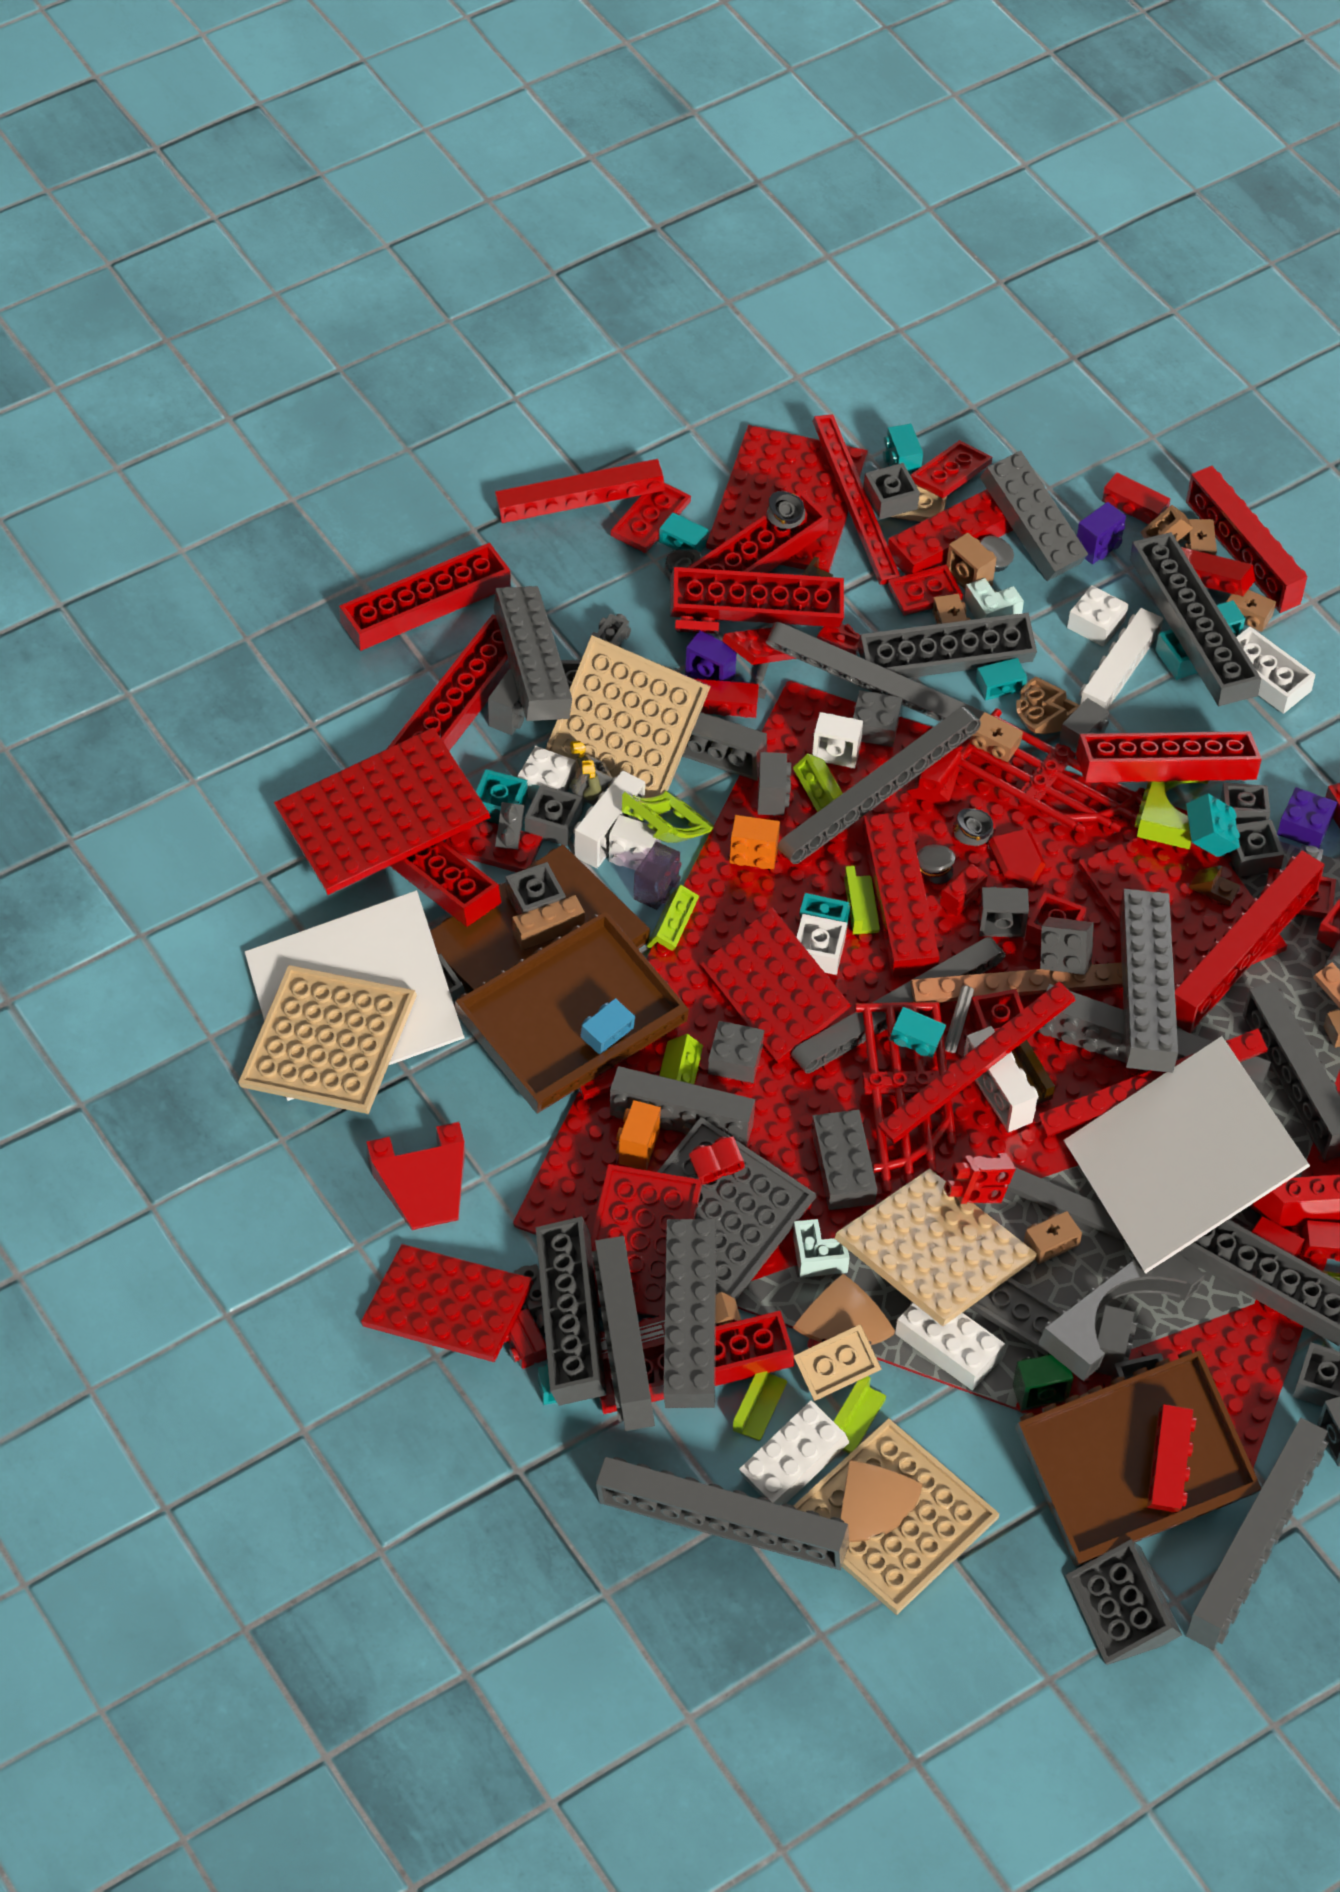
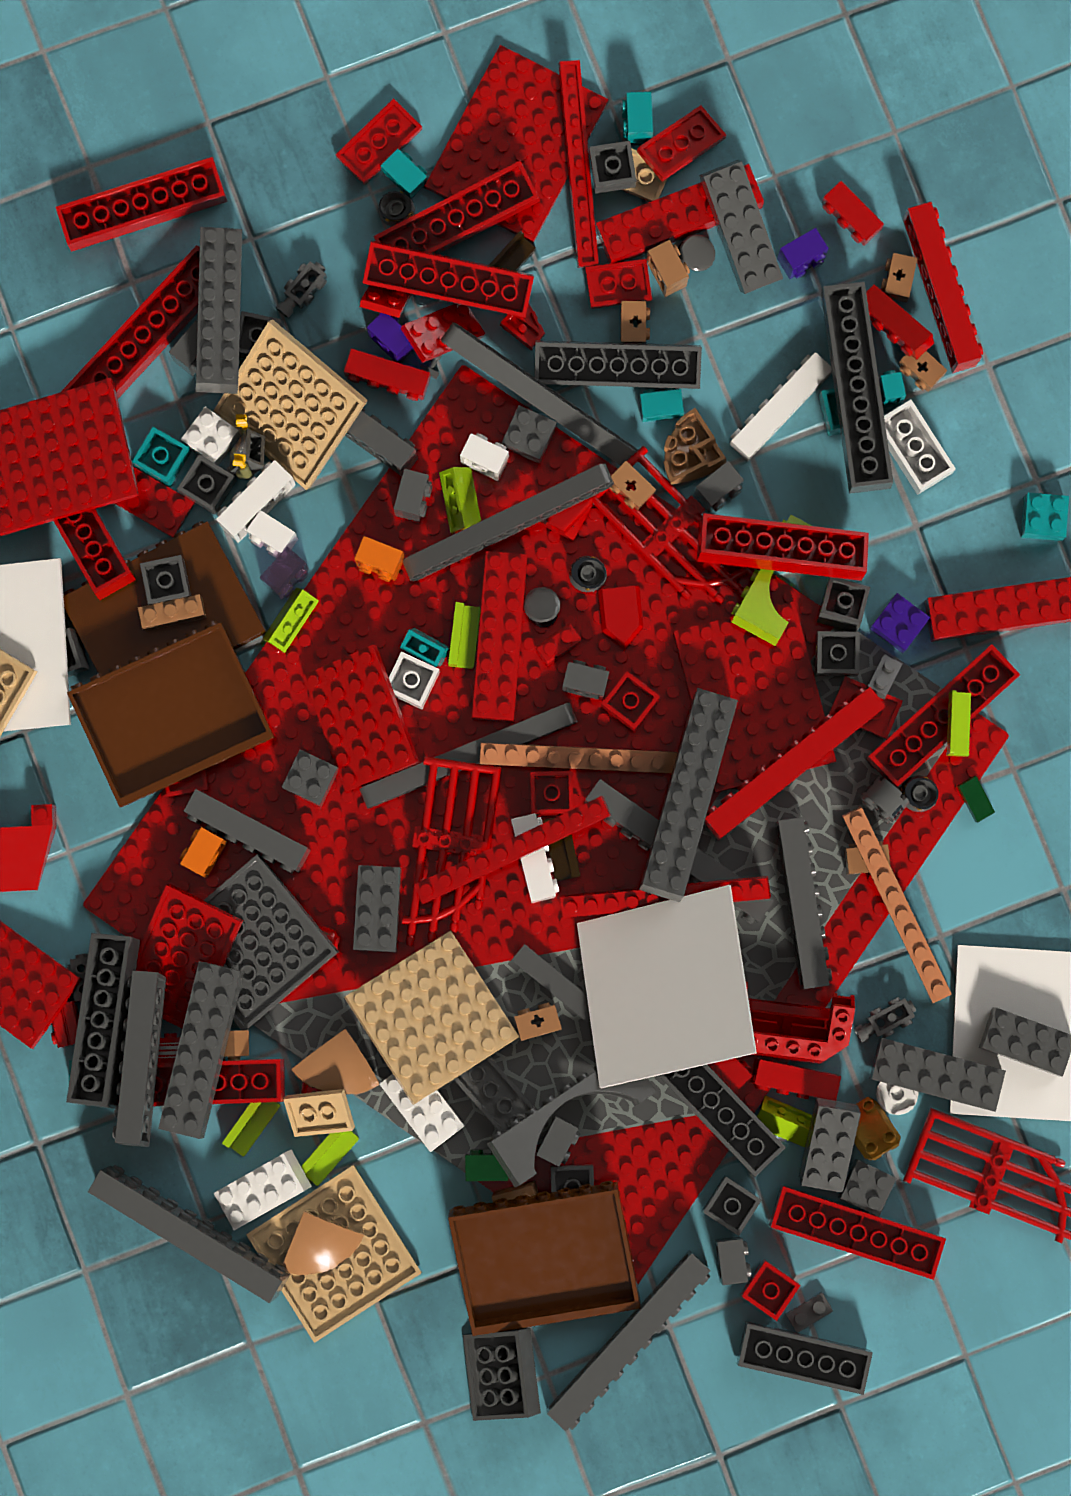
camera: 15 degrees right, 30 degrees up
(509, 826) = (162, 494): dark grey tile -> none
(580, 490) = (315, 102): red brick -> none
(607, 1026) = (195, 745): dark azure brick -> none
(651, 809) = (288, 527): lime wedge -> none
(681, 1059) = (257, 784): lime panel -> none
(716, 1159) = (258, 904): red brick -> none
(785, 510) = (498, 184): dark grey piece -> none
(816, 1255) = (324, 998): light aqua brick -> none
(917, 1032) = (470, 802): teal brick -> none
(958, 1019) = (514, 787): light grey axle -> none
(980, 1178) = (486, 962): red hips -> none
(986, 603) = (675, 320): light aqua brick -> none
(1066, 945) = (628, 737): dark grey brick -> none
(1097, 616) = (773, 349): white brick -> none
(1169, 521) = (867, 263): medium nougat brick -> none
(1170, 1458) = (568, 1273): red brick -> none
(1211, 884) = (787, 689): reddish brown slope -> none
(1213, 825) = (800, 634): teal brick -> none

